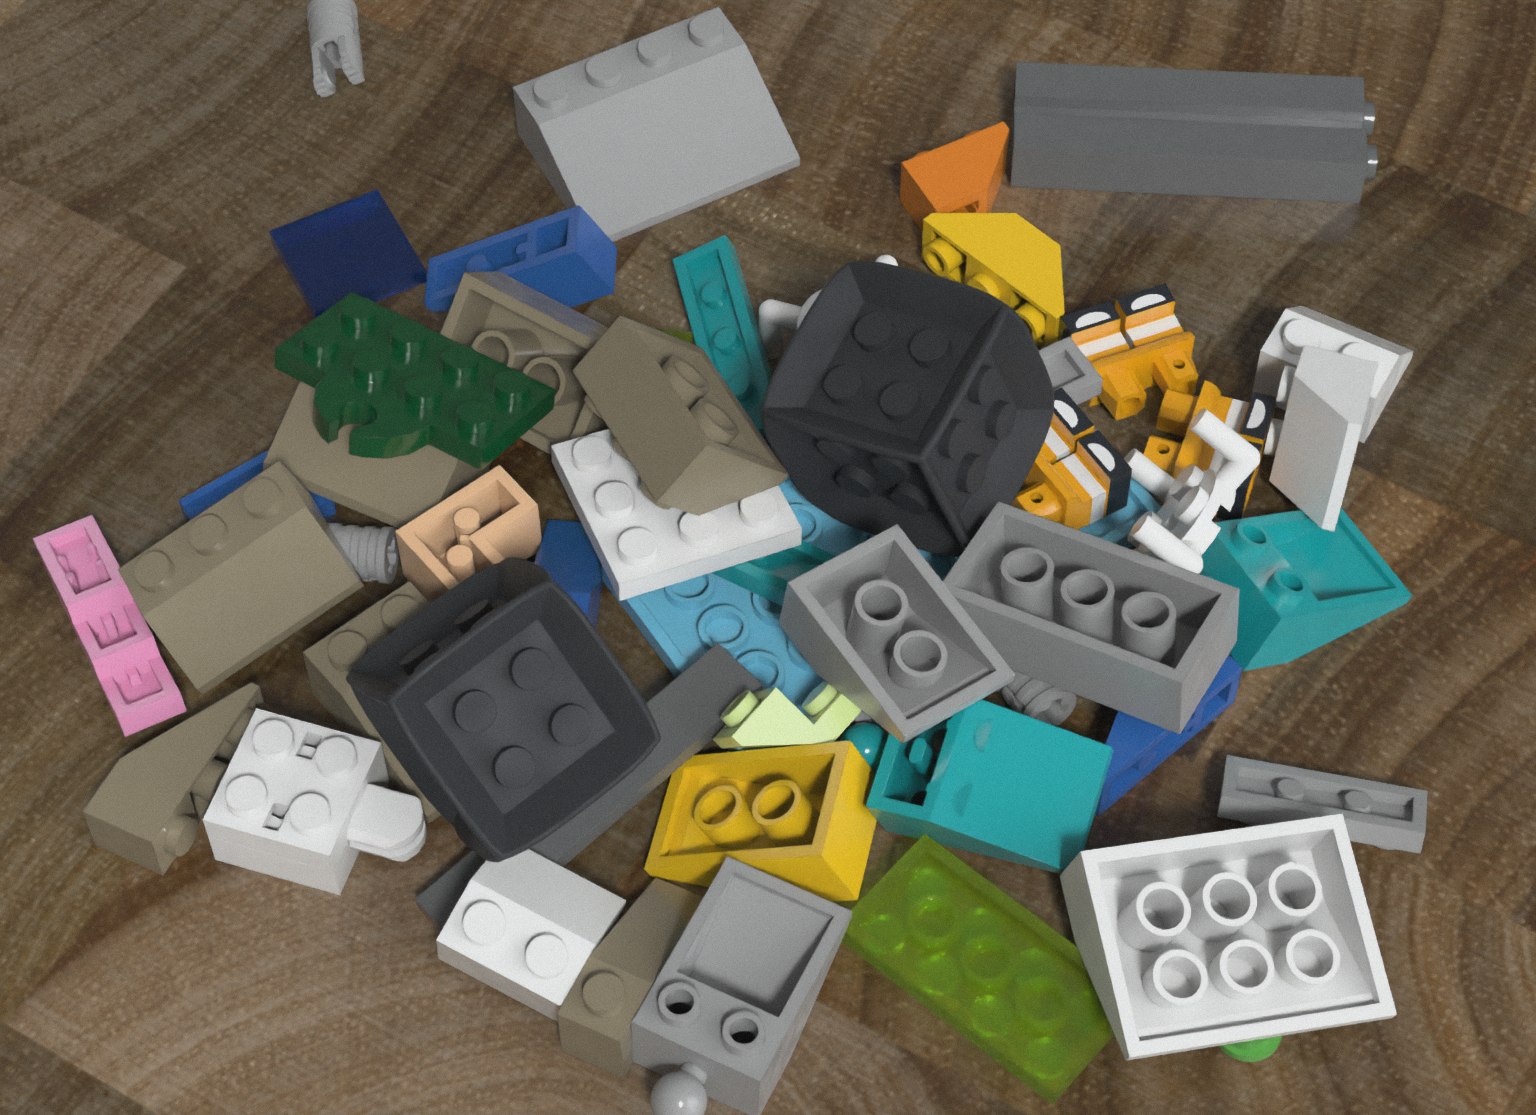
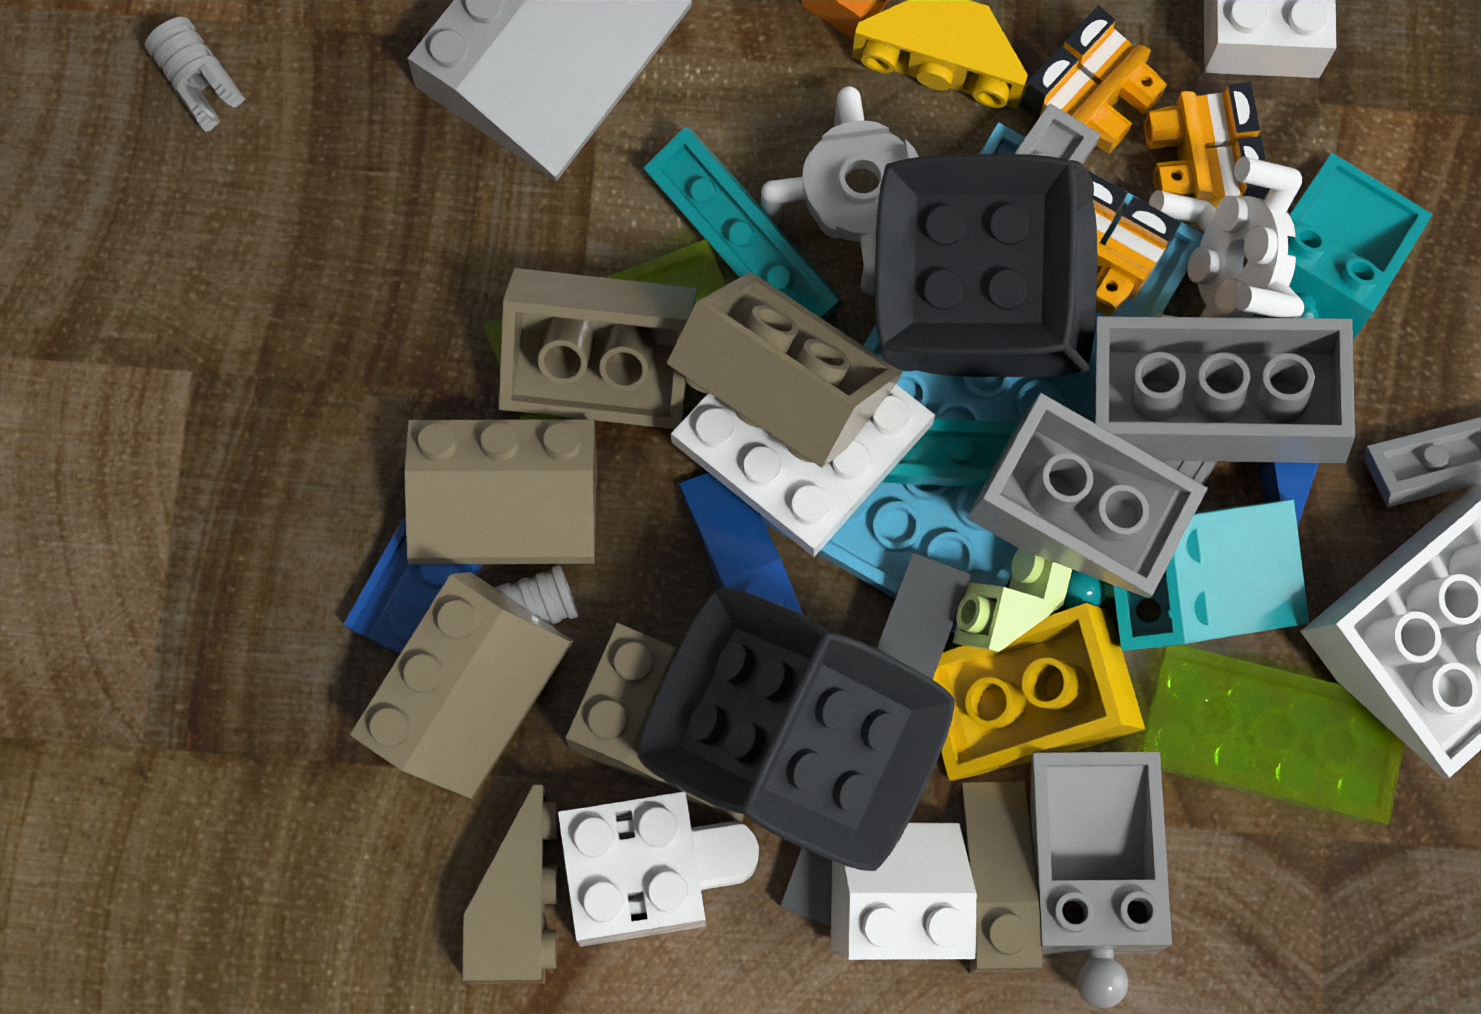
camera: 30 degrees left, 20 degrees up
(109, 626) = (356, 776): bright pink slope -> none
(348, 251) = (340, 295): clear blue tile -> none
(408, 386) = (510, 434): dark green plate -> none
(469, 533) = (635, 563): light nougat brick -> none
(556, 255) = (528, 231): blue slope -> none
(1319, 430) = (1313, 104): white slope -> none

